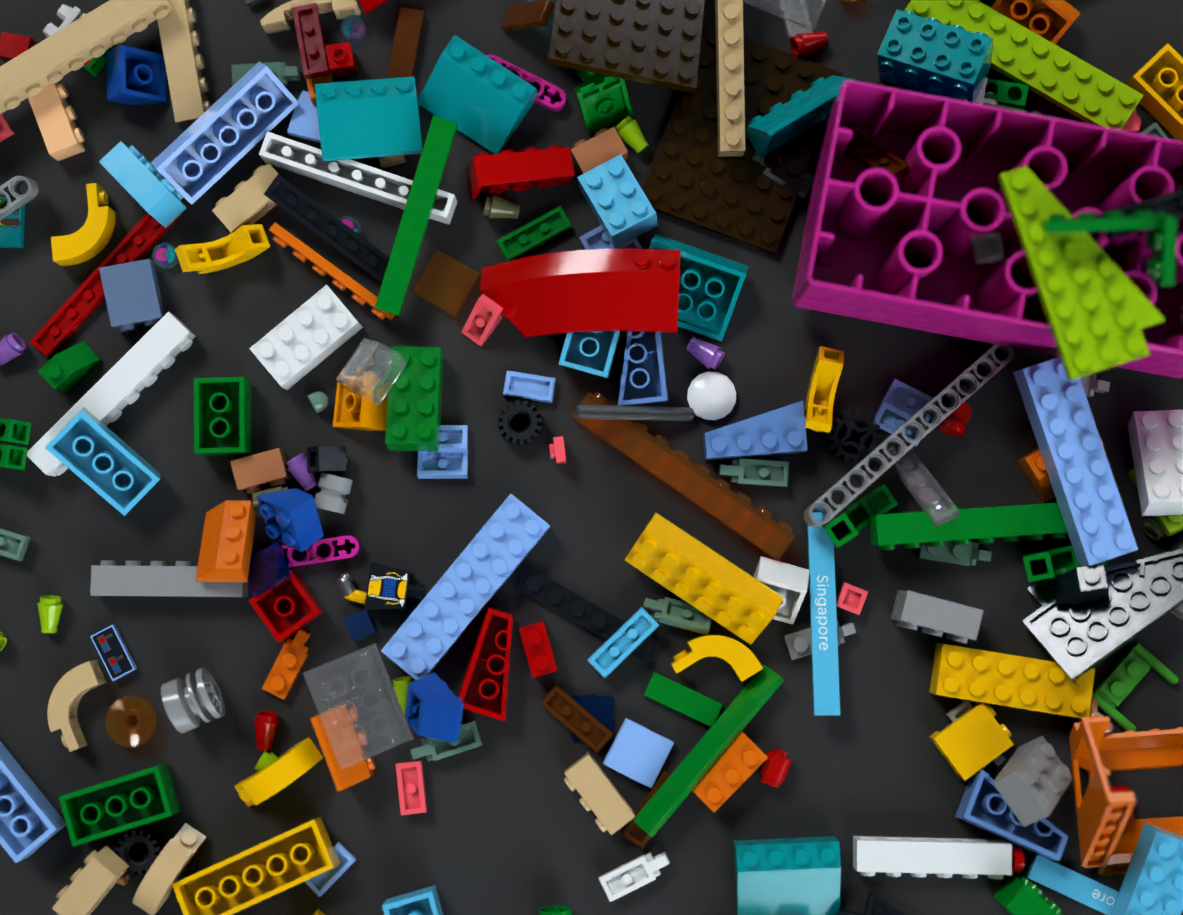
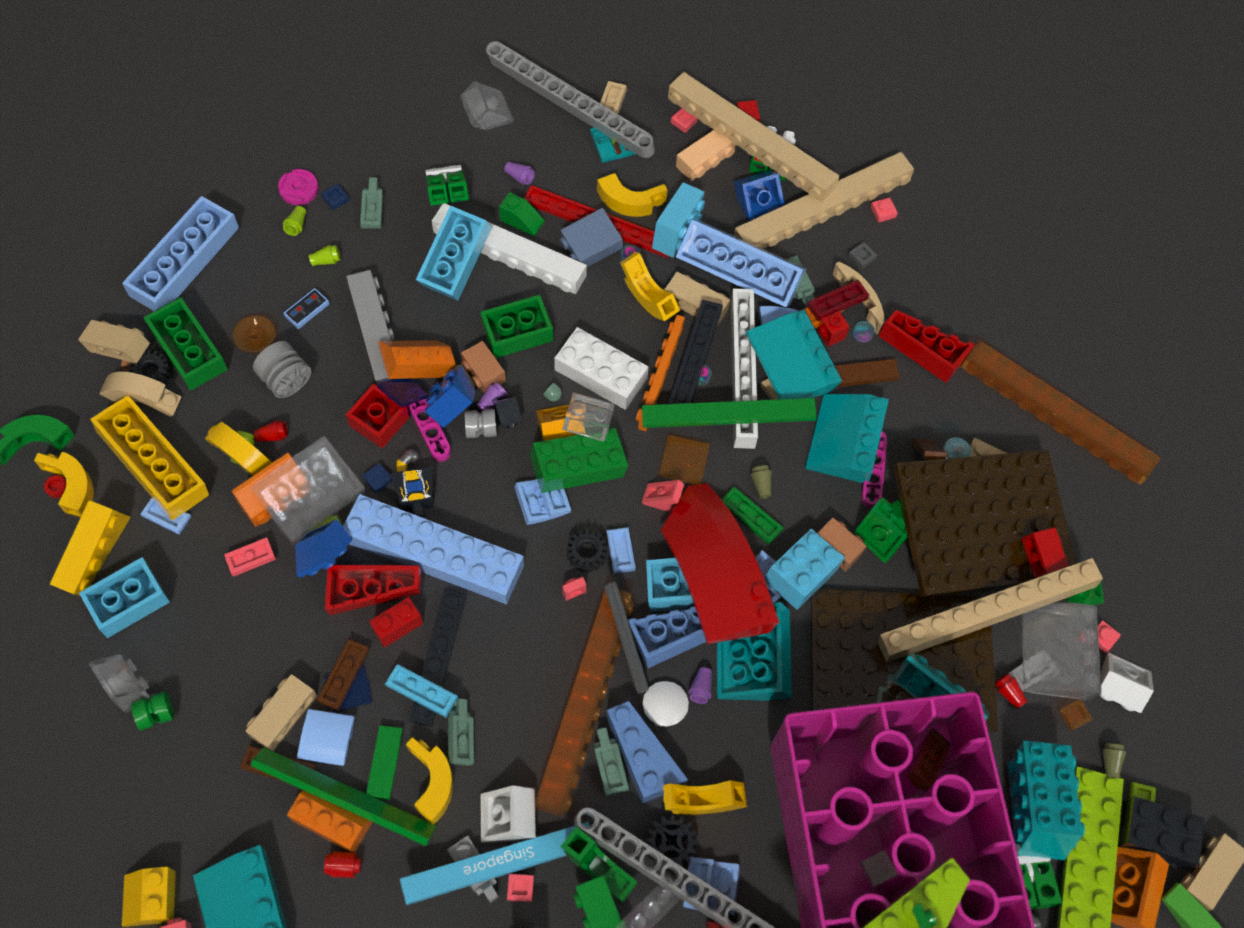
camera: 65 degrees right, 20 degrees down
(65, 700) = (259, 285): tan arch -> none
(287, 665) = (336, 434): orange hinge -> none
(437, 749) = (303, 587): sand green hinge -> none
(519, 170) = (799, 484): red wedge -> none
(631, 134) = (868, 564): lime cone -> none
(632, 875) = (213, 765): white hinge -> none
(704, 579) = (497, 741): yellow brick -> none

